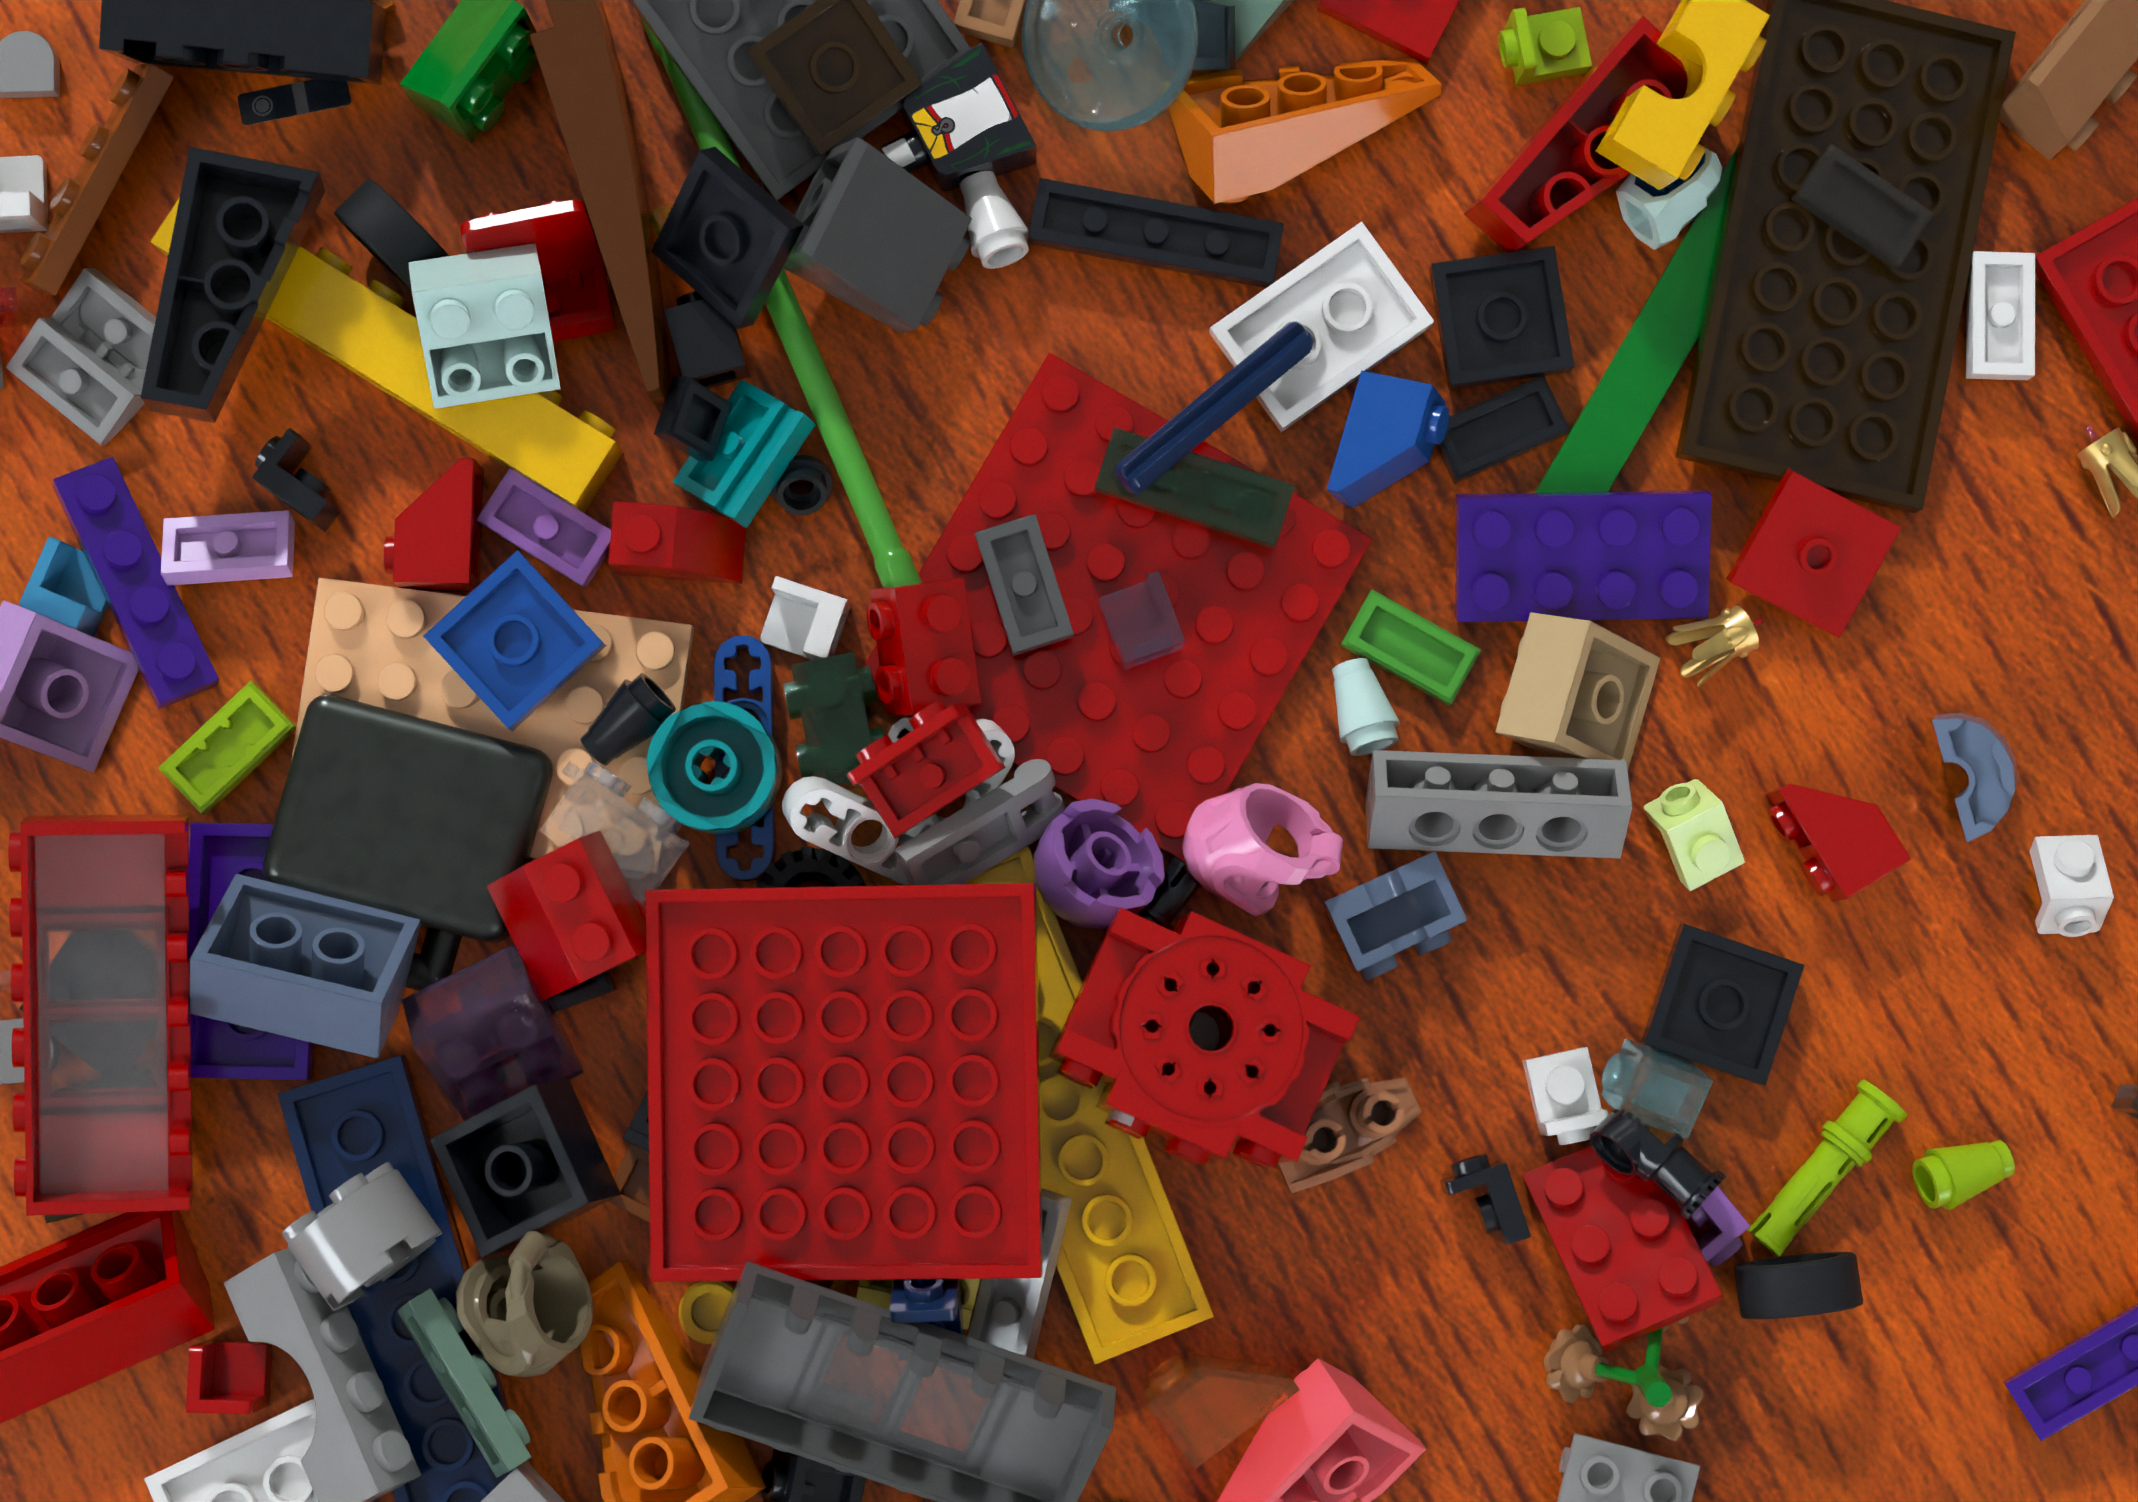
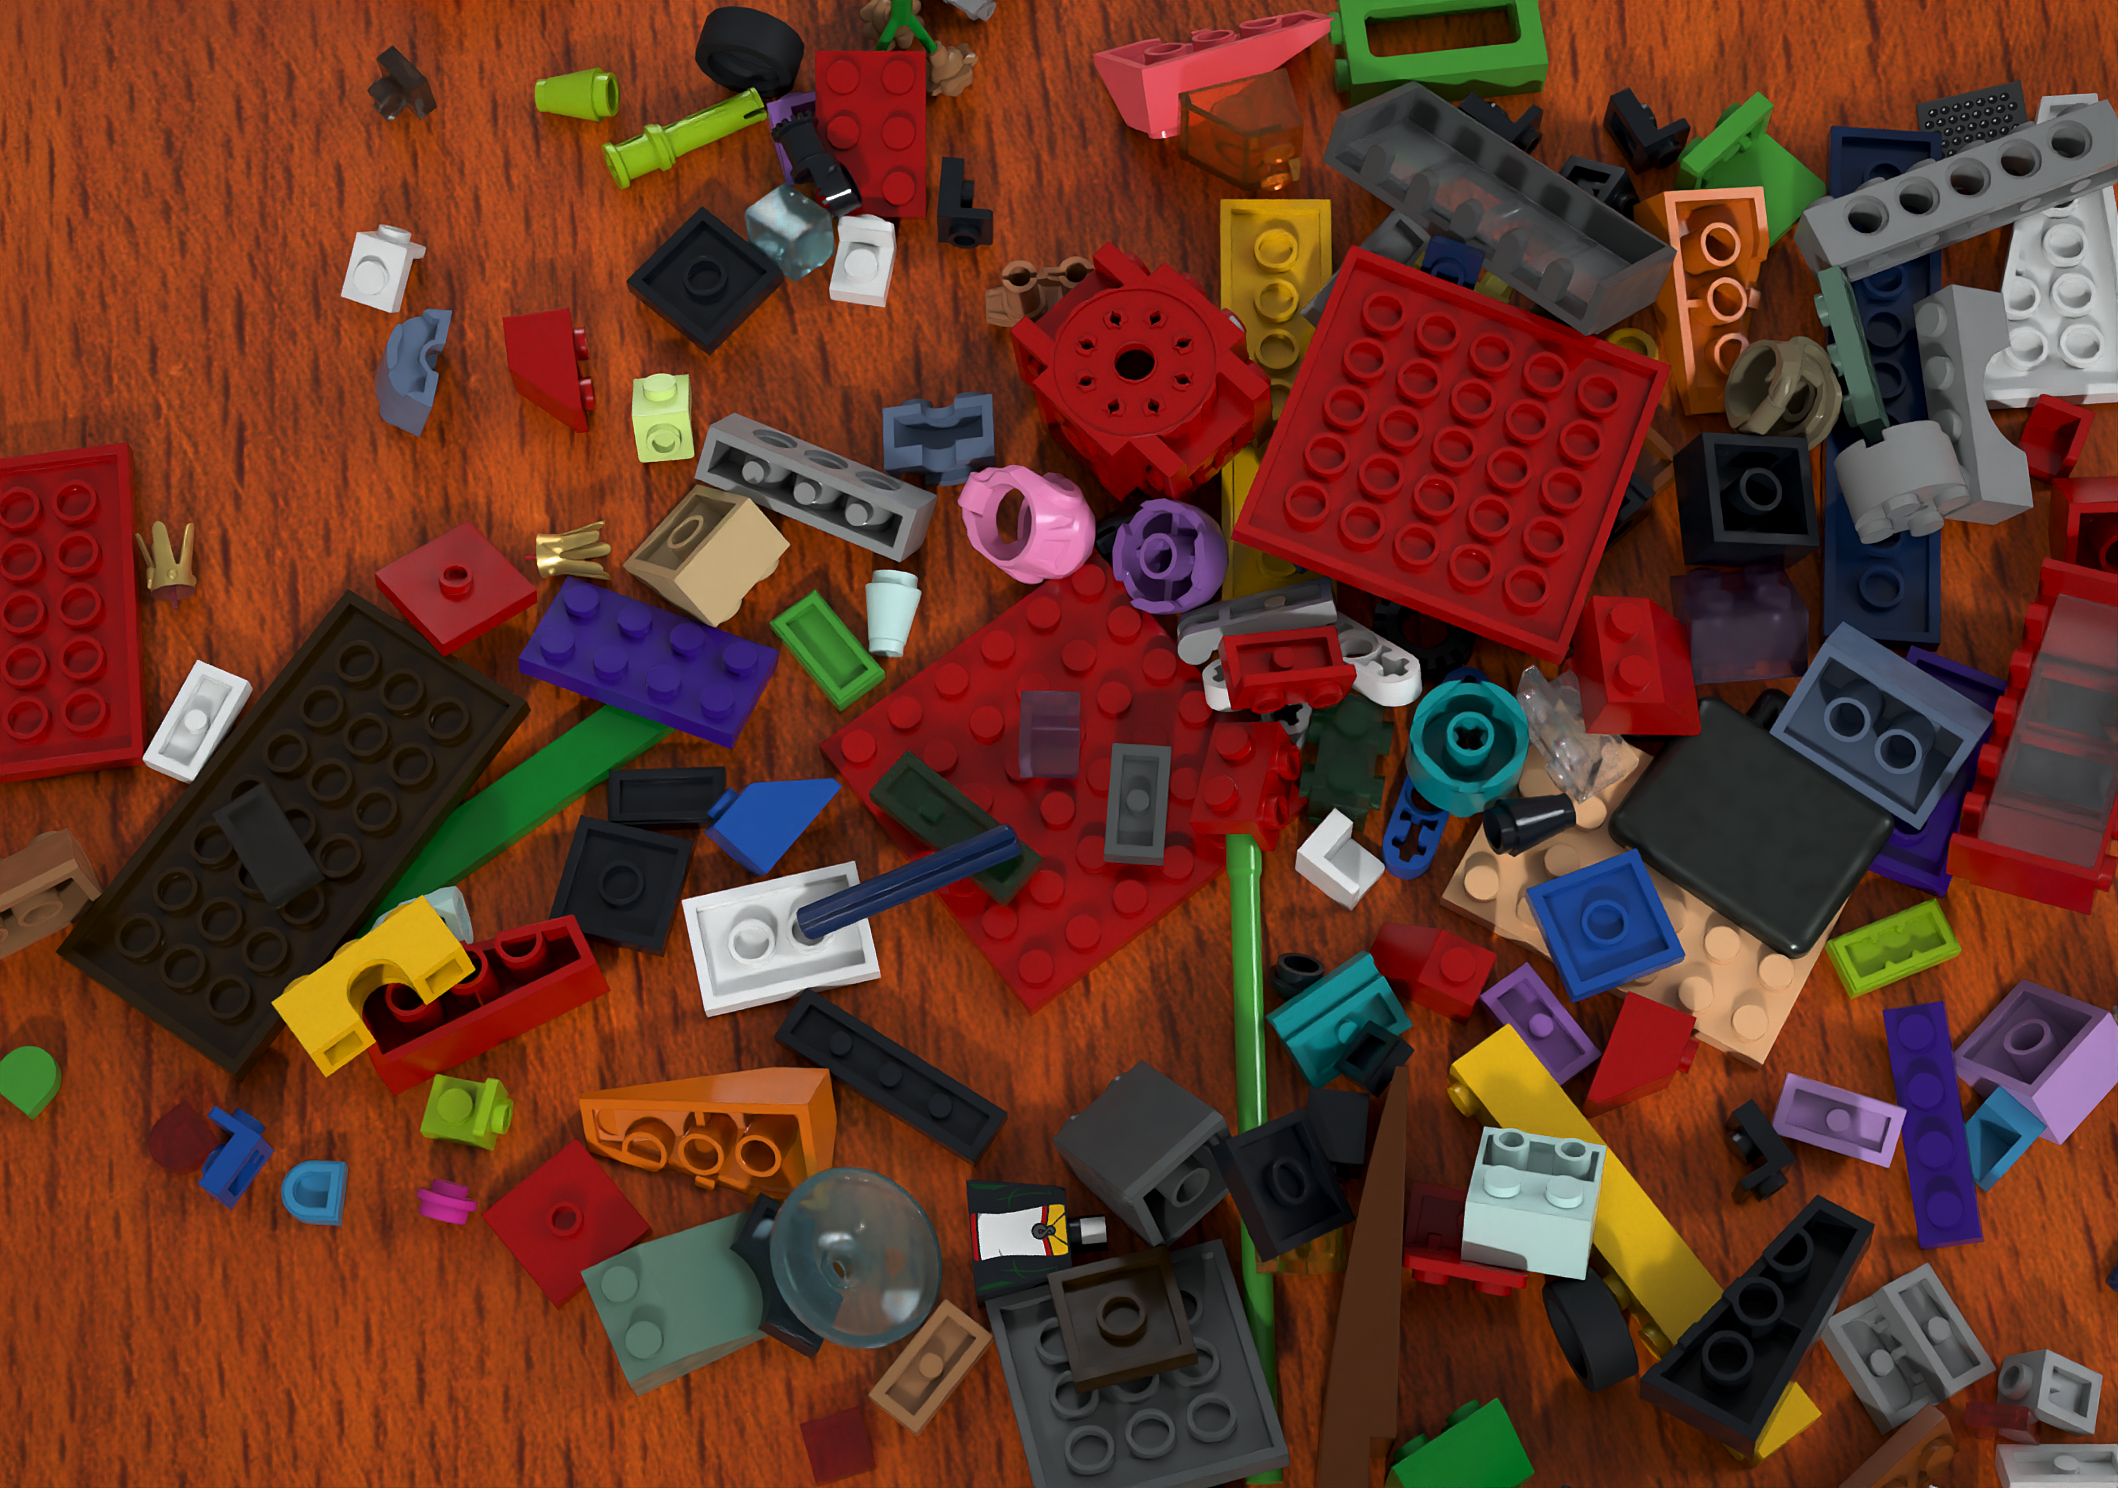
camera: 150 degrees left, 15 degrees down
(996, 228) = (1030, 1141): white cone -> none

